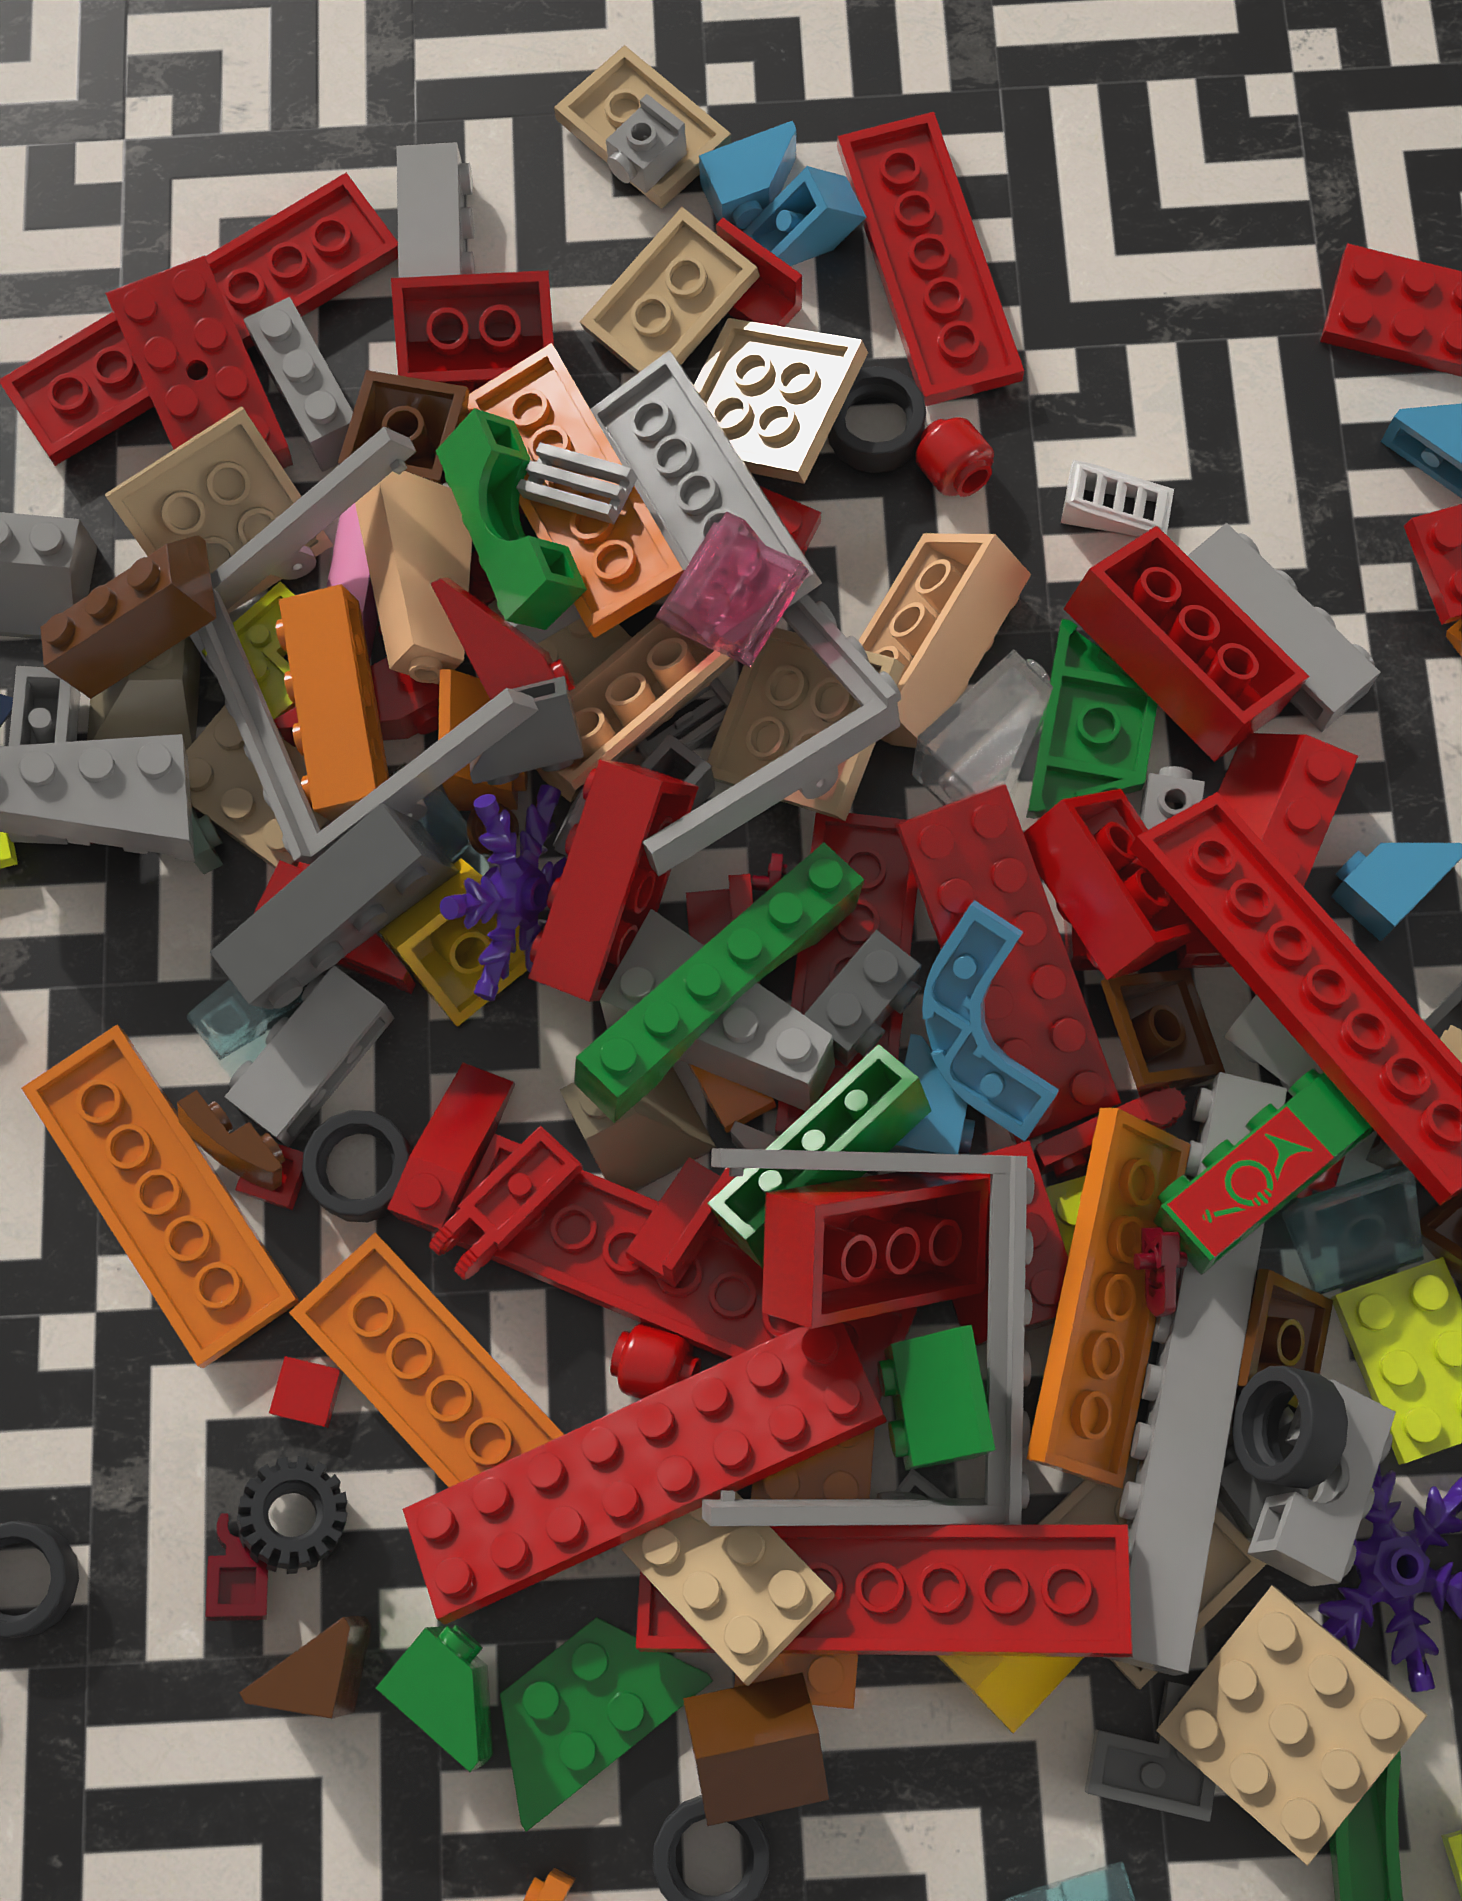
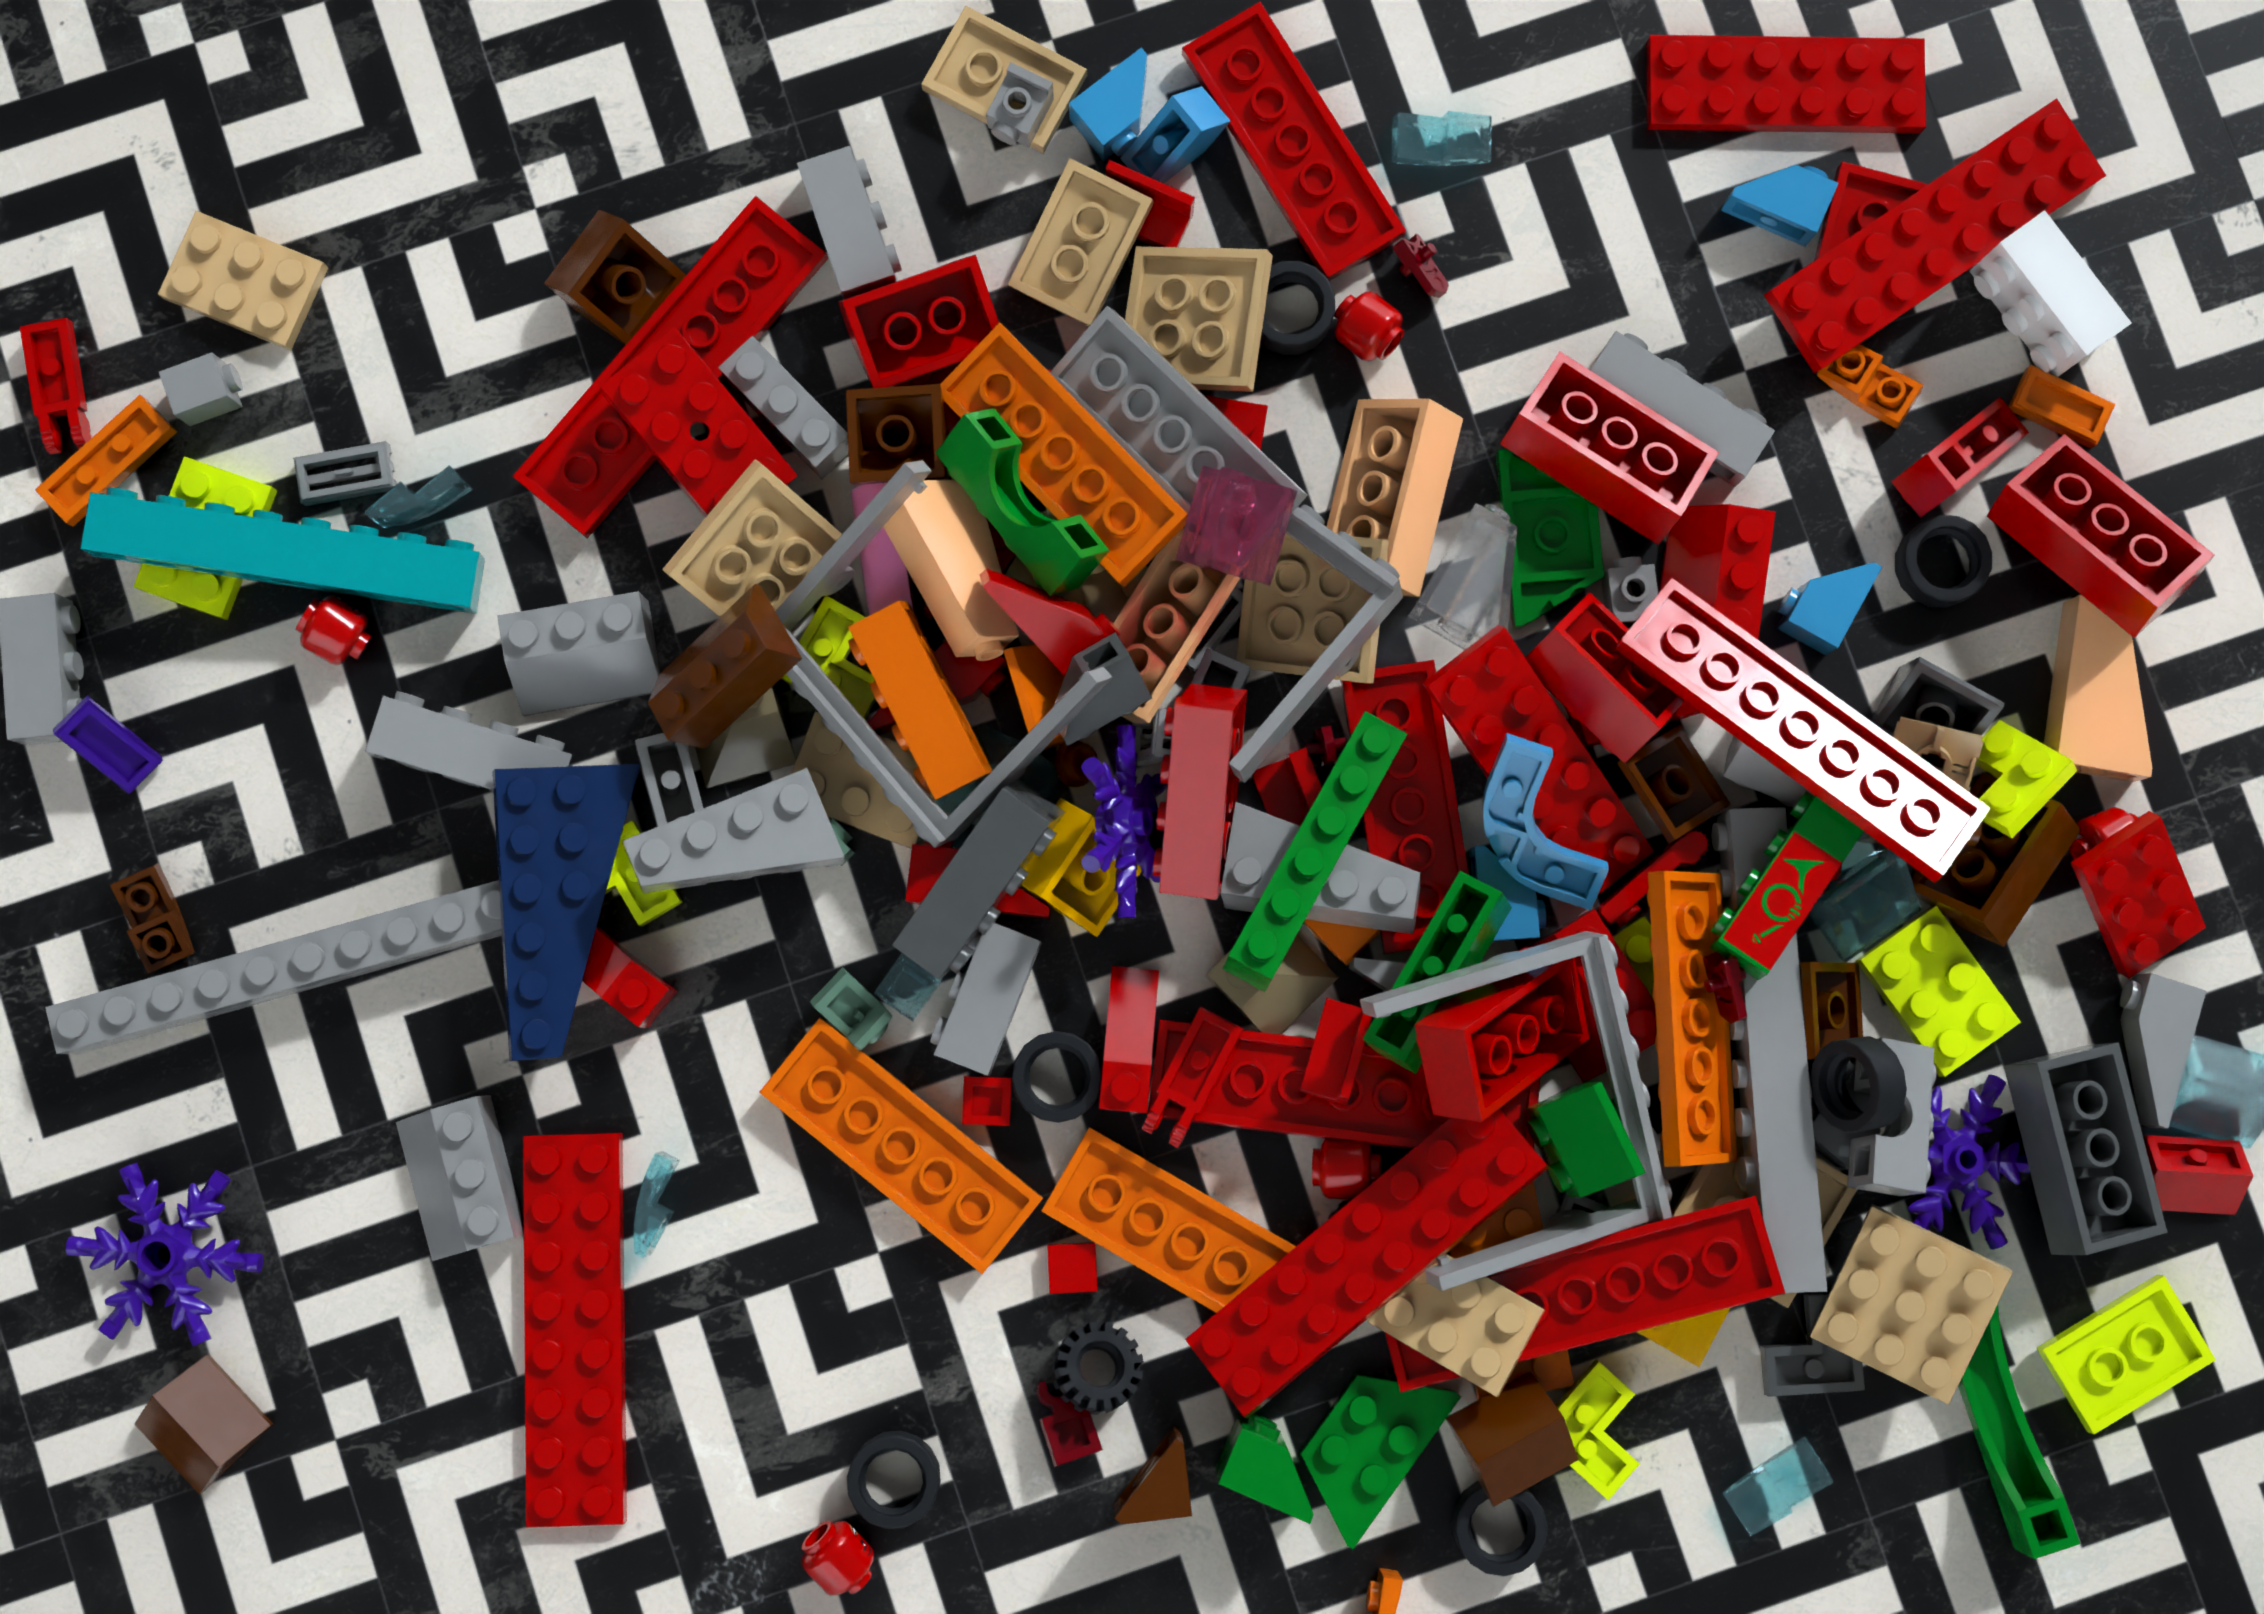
camera: 25 degrees left, 10 degrees up
(156, 1026) = (852, 1009): none -> sand green bracket
(173, 212) = (614, 276): none -> reddish brown slope
(242, 1151) = (969, 1095): reddish brown slope -> none
(584, 464) = (1031, 449): light grey tile -> none
(852, 1753) = (1587, 1413): none -> neon yellow plate
(865, 995) = (1430, 827): dark grey brick -> none
(1029, 407) = (1417, 260): none -> dark red piece
(1097, 299) = (1441, 141): none -> clear light blue slope
(1104, 480) = (1498, 312): white slope -> none

